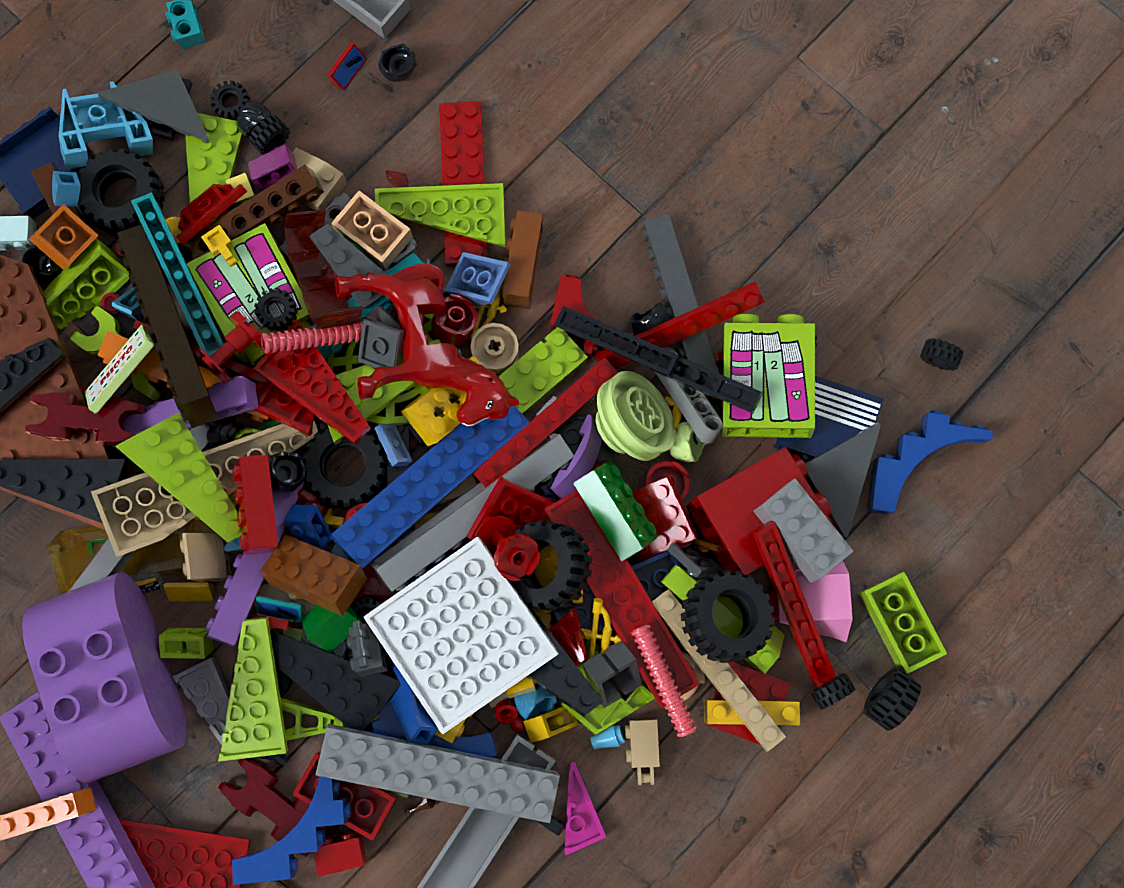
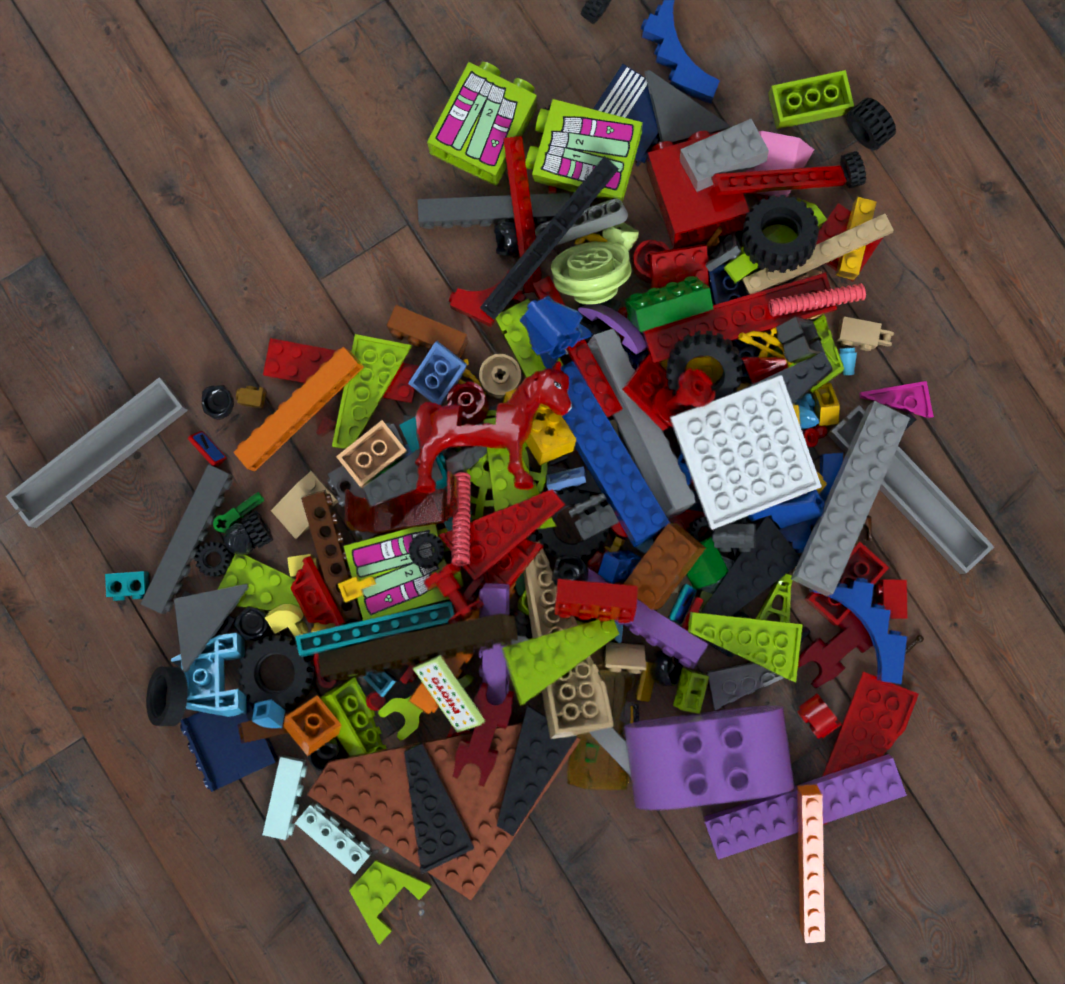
camera: 70 degrees left, 5 degrees up
(69, 85) = (158, 710): none -> black tyre
(167, 155) = (252, 624): none -> black hair
(182, 190) = (287, 616): none -> light yellow brick
(184, 798) = (819, 715): none -> red brick
(201, 608) = (664, 671): none -> black hair
(247, 69) = (186, 540): none -> dark grey brick
(272, 167) = (287, 532): magenta brick -> none
(278, 108) = (236, 514): none -> green connector
(347, 486) = (595, 522): none -> dark grey brick
(380, 344) = (482, 466): dark grey tile -> none
(408, 145) = (298, 409): none -> orange brick
(412, 97) = (251, 397): none -> pearl gold brick
(552, 385) = (553, 329): none -> blue brick
(782, 257) = (479, 117): none -> brick

